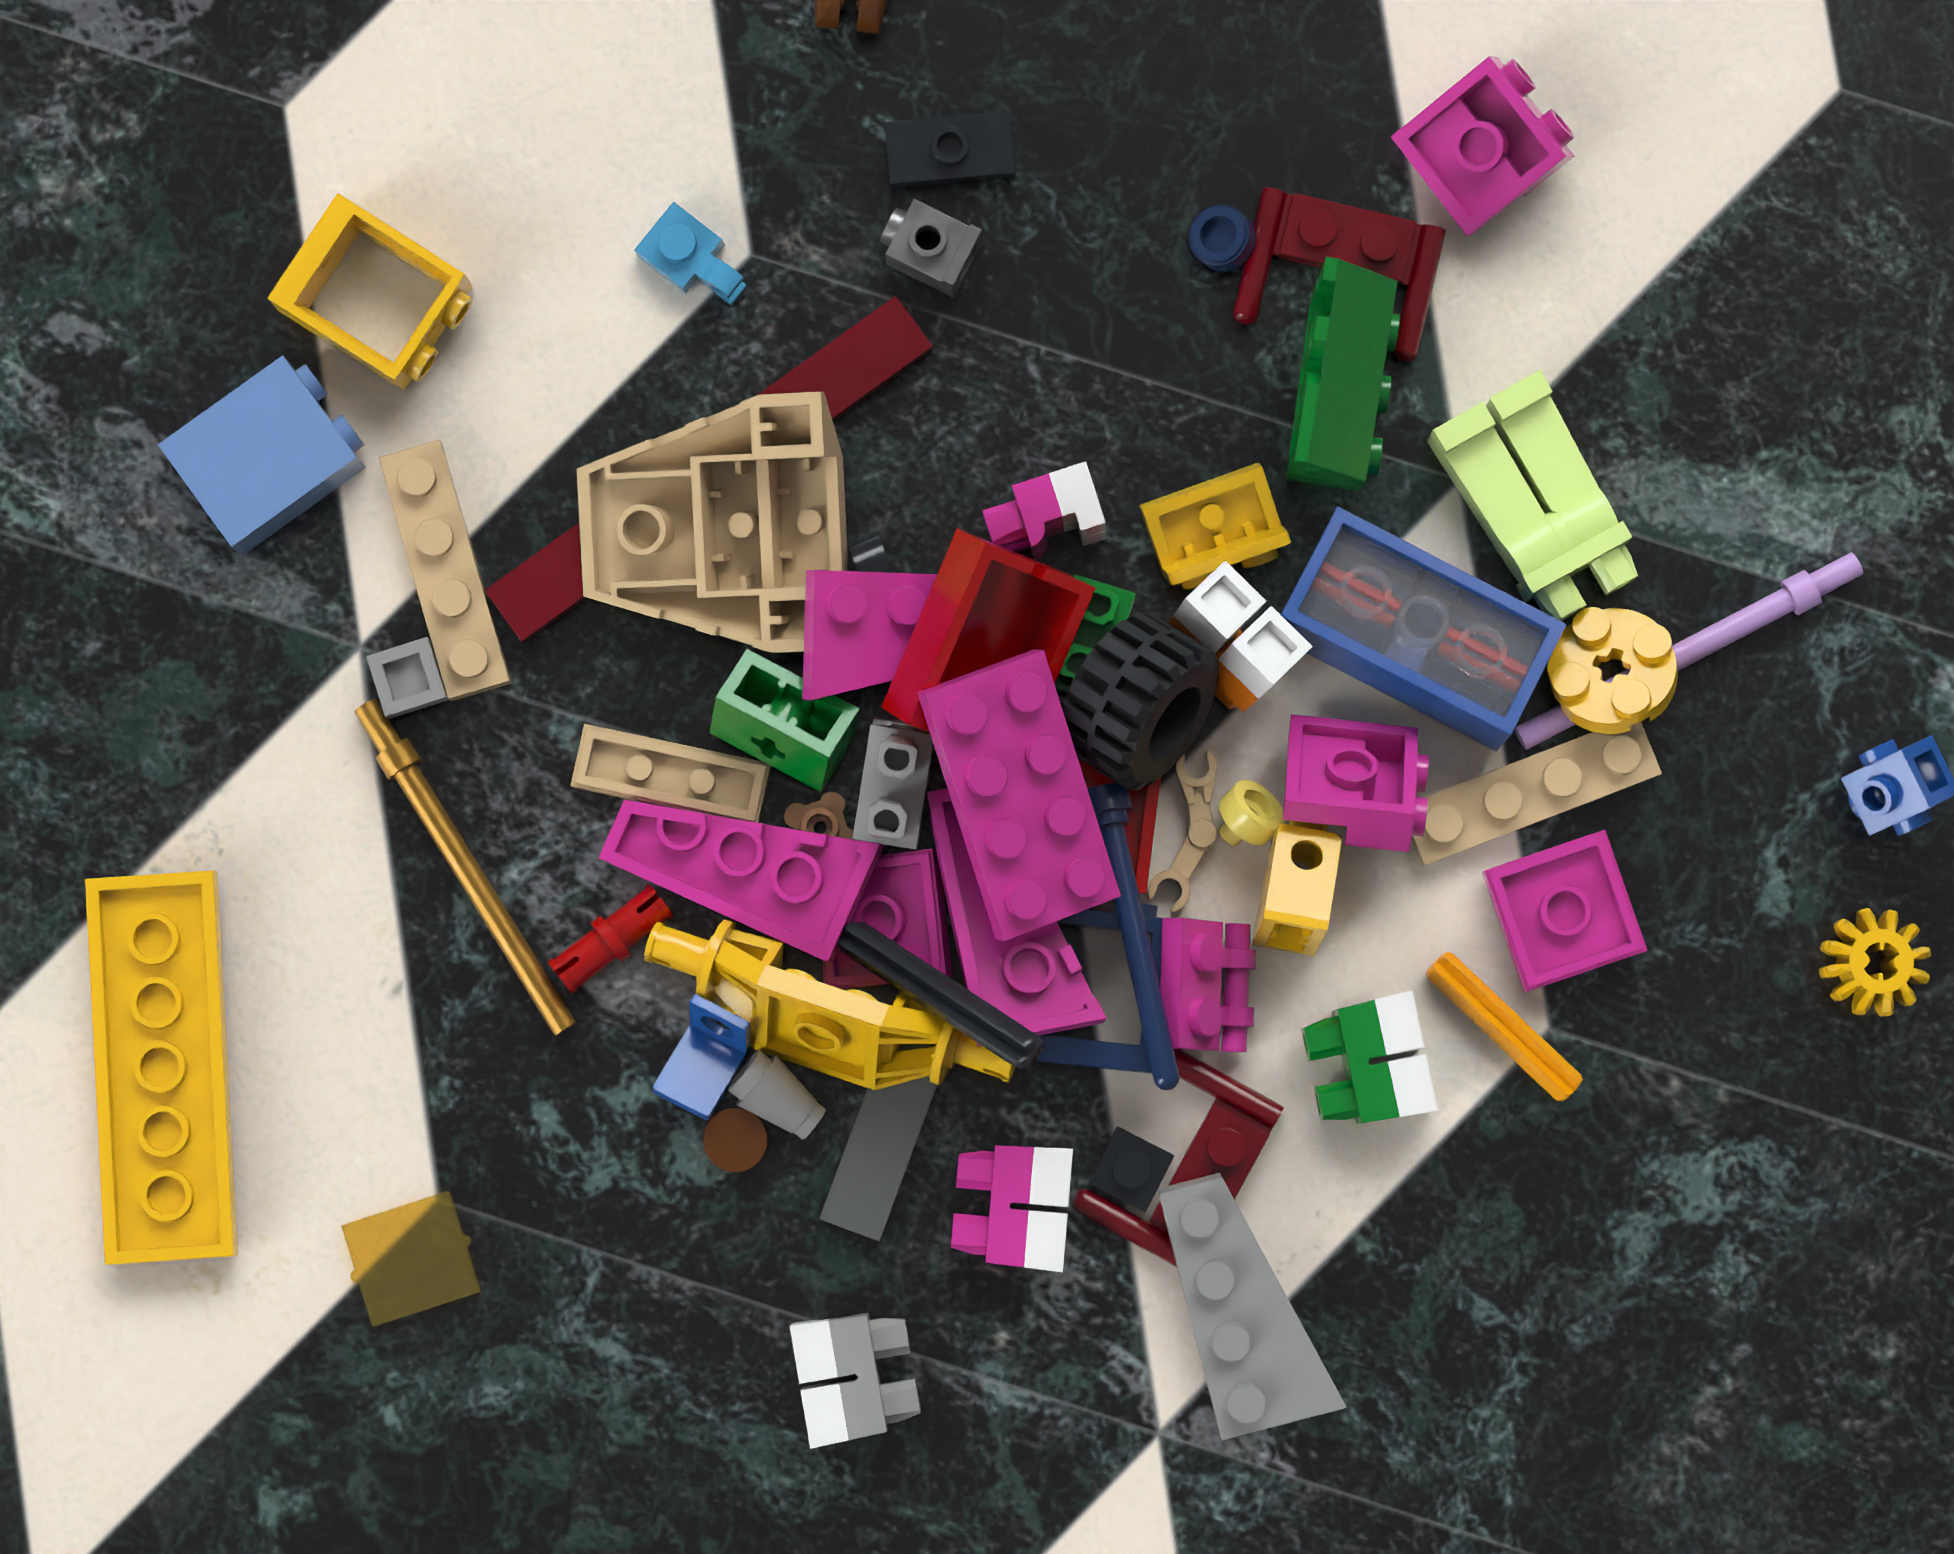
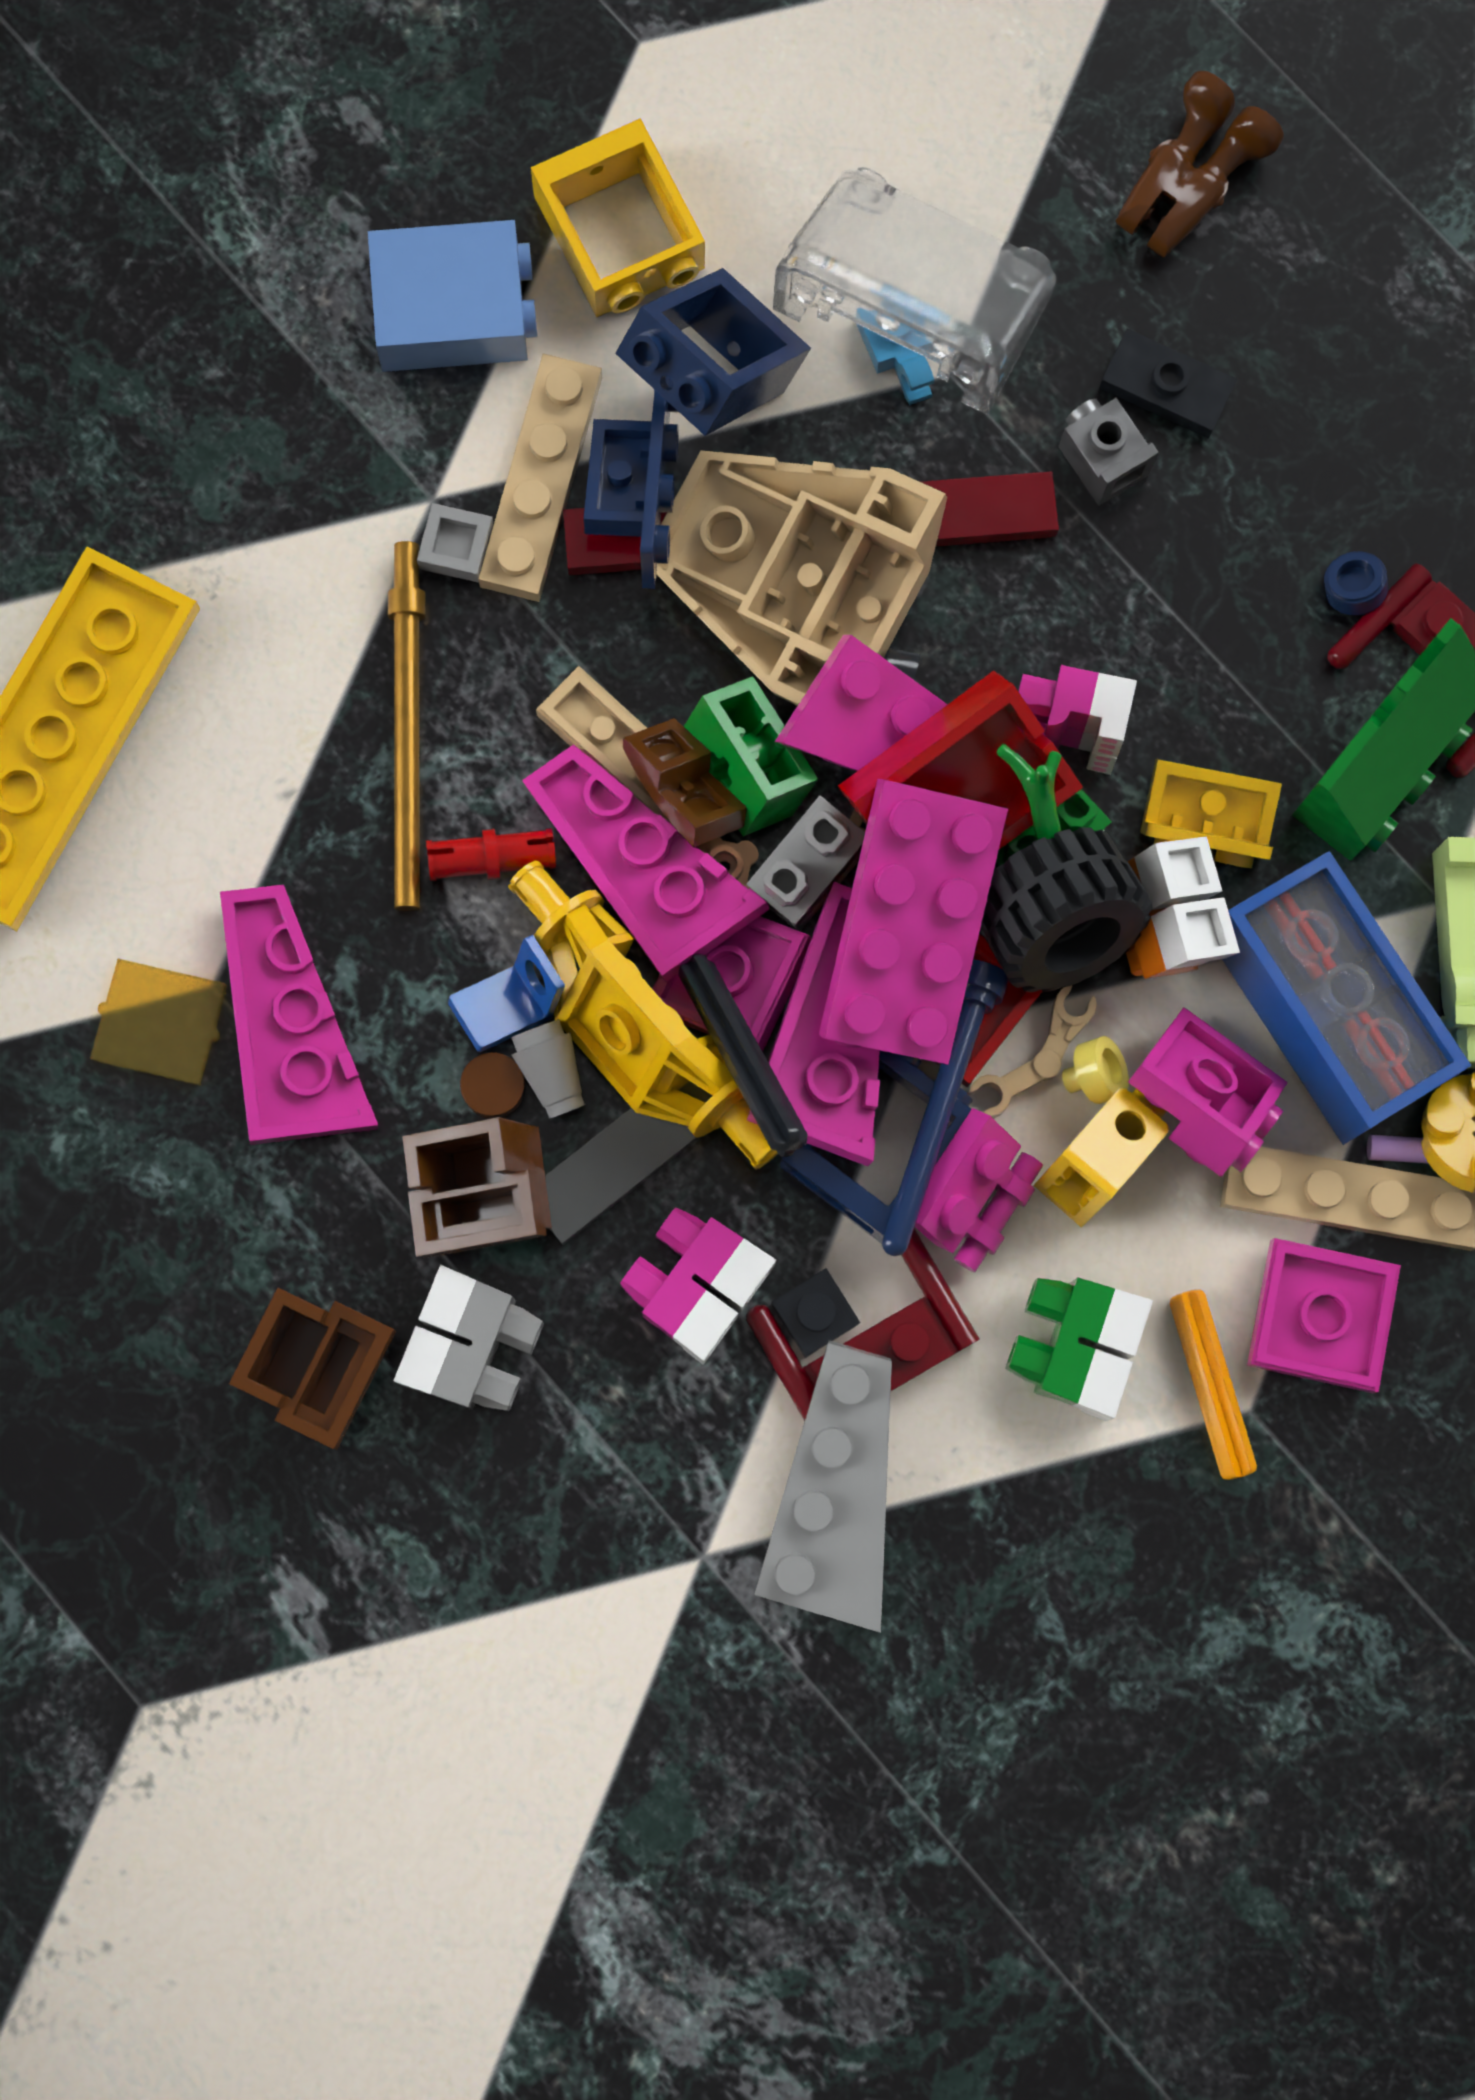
camera: 25 degrees right, 5 degrees down
(524, 528) = (630, 484): none -> dark blue bracket
(533, 1205) = (288, 1039): none -> dark pink wing
(544, 333) = (734, 325): none -> dark blue window
(673, 193) = (917, 281): none -> clear windscreen
(734, 1475) = (312, 1364): none -> reddish brown plate
(738, 779) = (678, 779): none -> reddish brown slope
(781, 1242) = (476, 1186): none -> reddish brown plate
(1059, 616) = (1038, 788): none -> green bar

